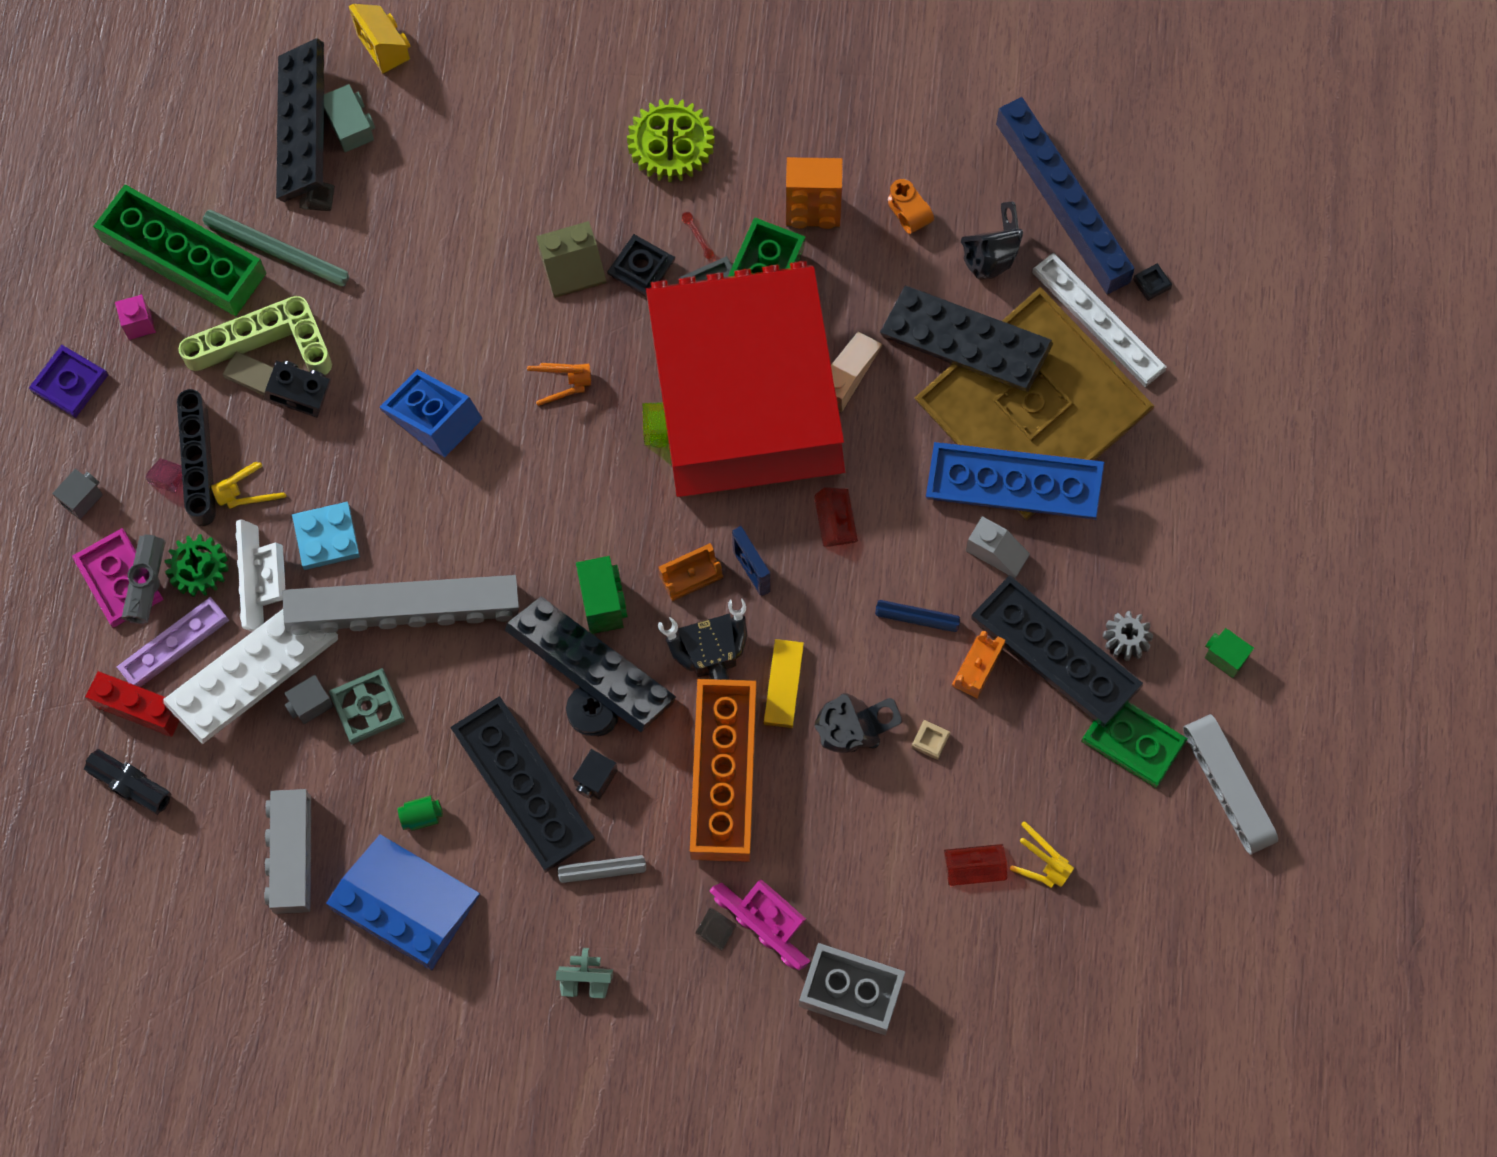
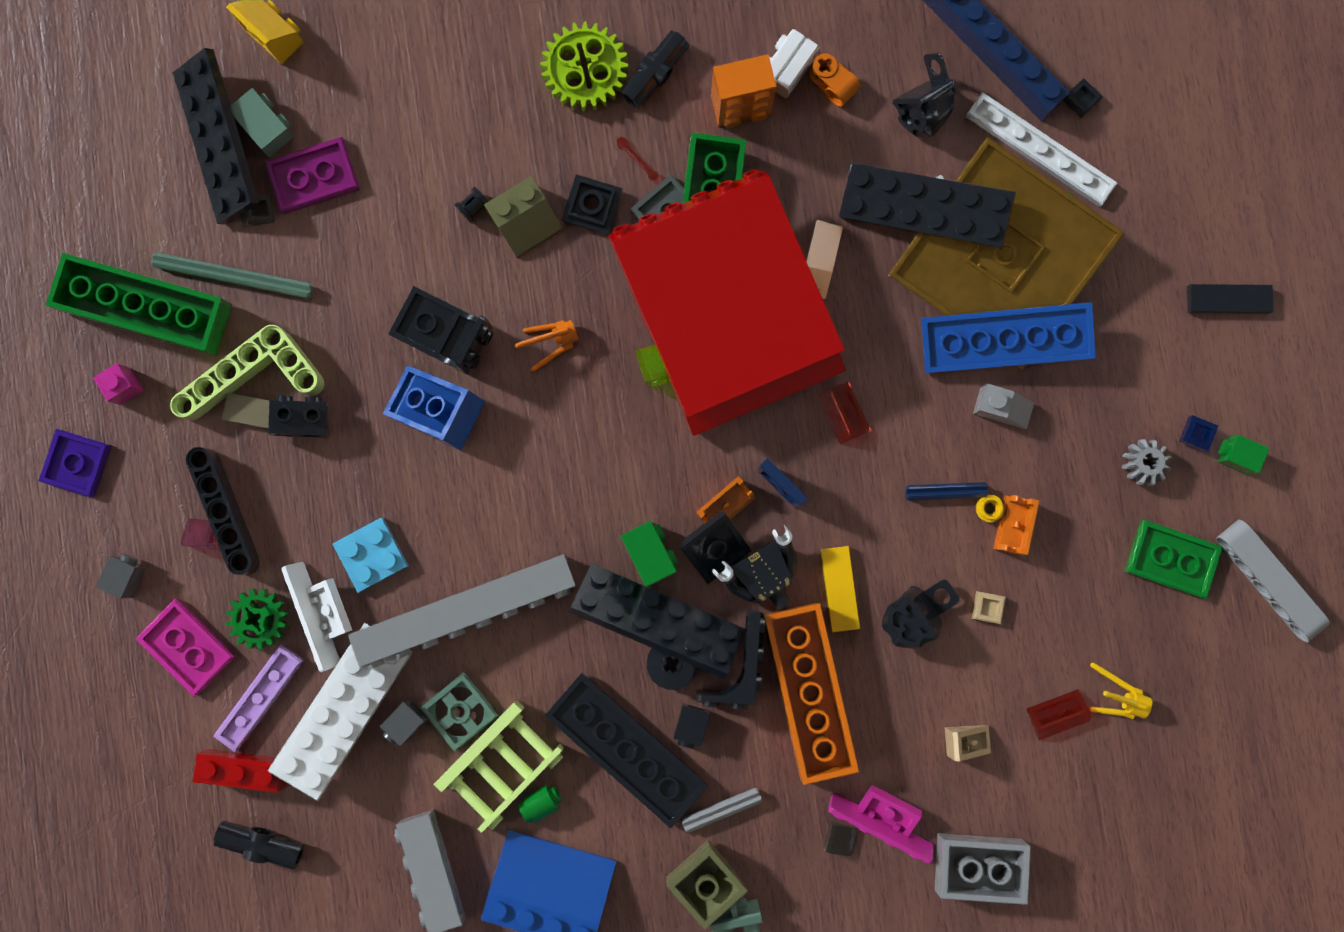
camera: 15 degrees left, 15 degrees up
(146, 562) = (212, 669): dark grey piece -> none
(227, 490) = (263, 533): yellow plant -> none
(366, 750) = (473, 759): none -> yellowish green fence
(380, 177) = (312, 175): none -> magenta tile
(461, 344) = (442, 330): none -> black bracket
(524, 237) = (471, 204): none -> black bush
(563, 929) = (705, 884): none -> olive slope
(655, 748) = (743, 690): none -> black bracket
(666, 599) = (713, 543): none -> black tile
(737, 158) = (655, 69): none -> black piece
(869, 182) = (792, 60): none -> white brick
(873, 863) = (967, 742): none -> tan slope
(960, 635) = (998, 507): none -> yellow plate
(1057, 651) = (1086, 495): black plate -> none
(1189, 622) = (1198, 433): none -> clear blue plate
(1254, 503) = (1229, 298): none -> black tile

